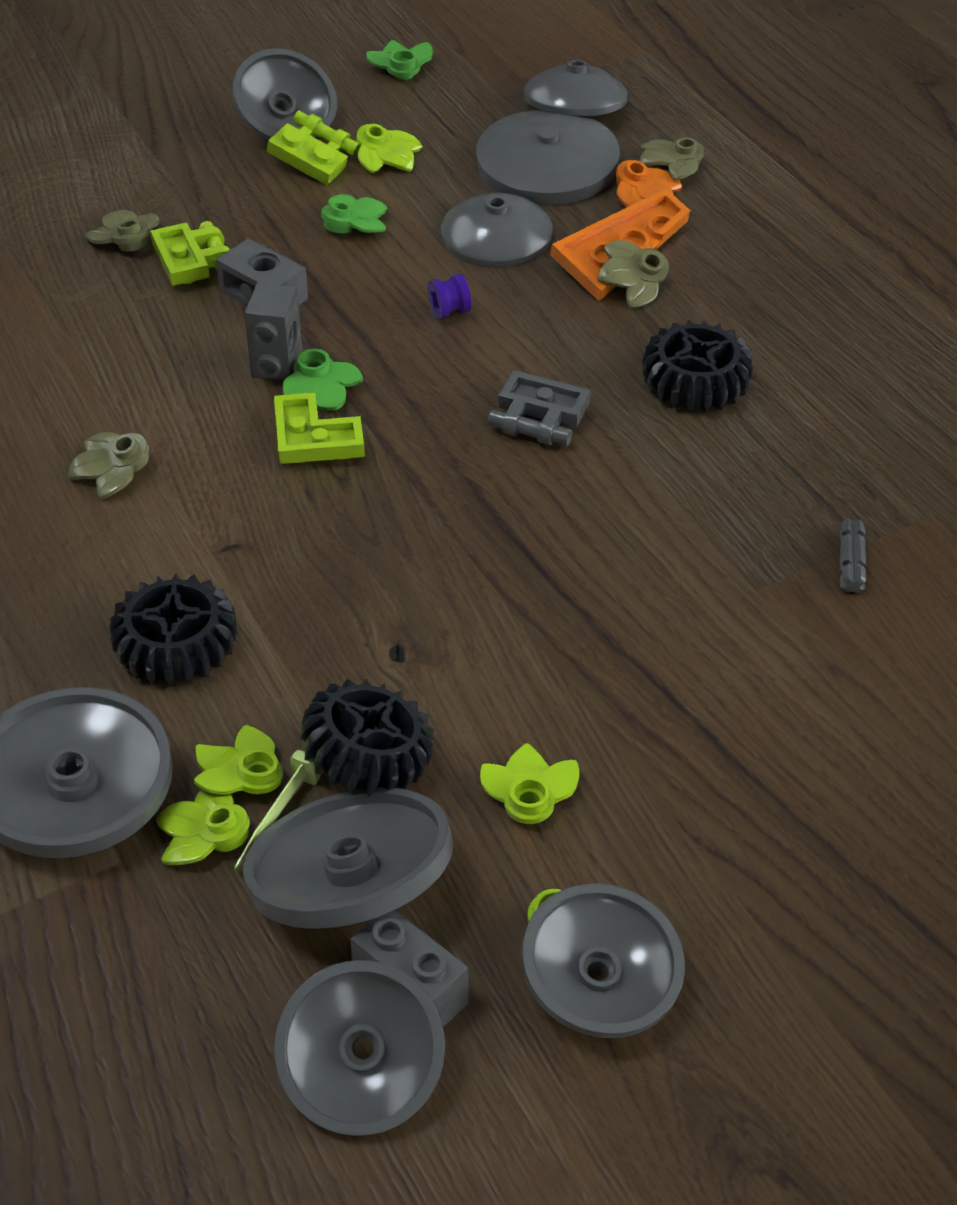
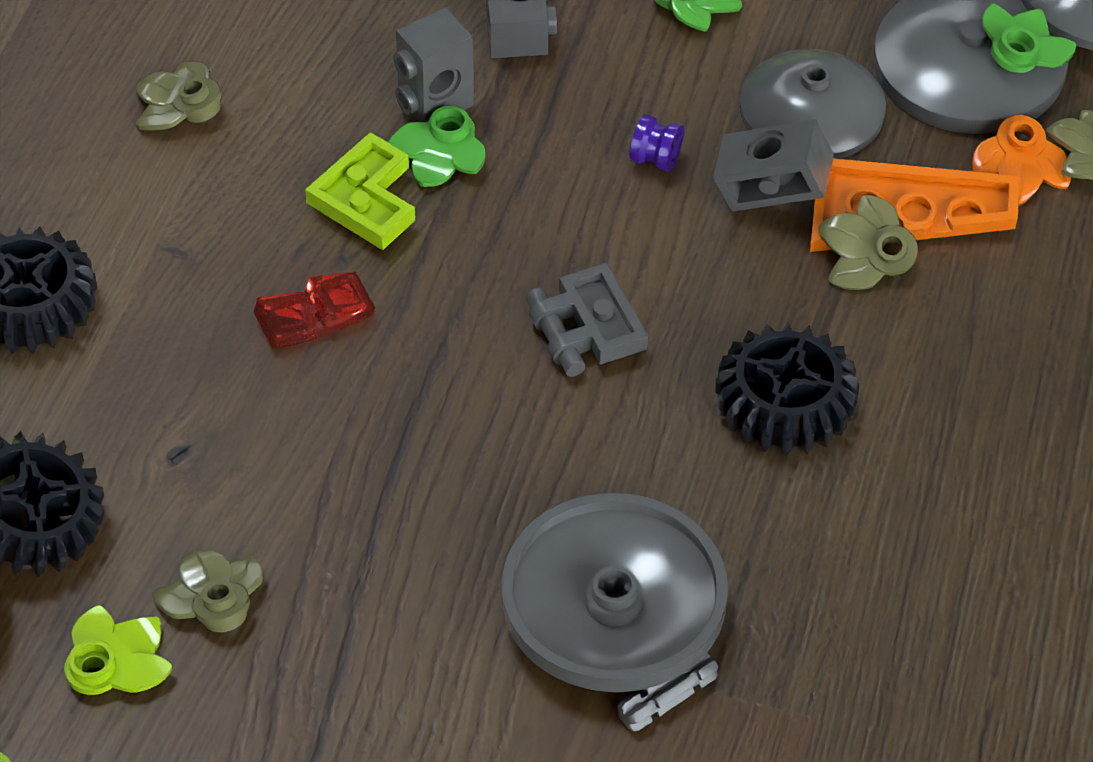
camera: 45 degrees right, 5 degrees up
(372, 515) = (324, 308): none -> clear red slope
(535, 703) = (211, 590): none -> olive plate
(538, 260) = (773, 165): none -> dark grey brick
(583, 126) = (1024, 40): none -> bright green plate
(768, 522) = (614, 592): none -> dark grey dish

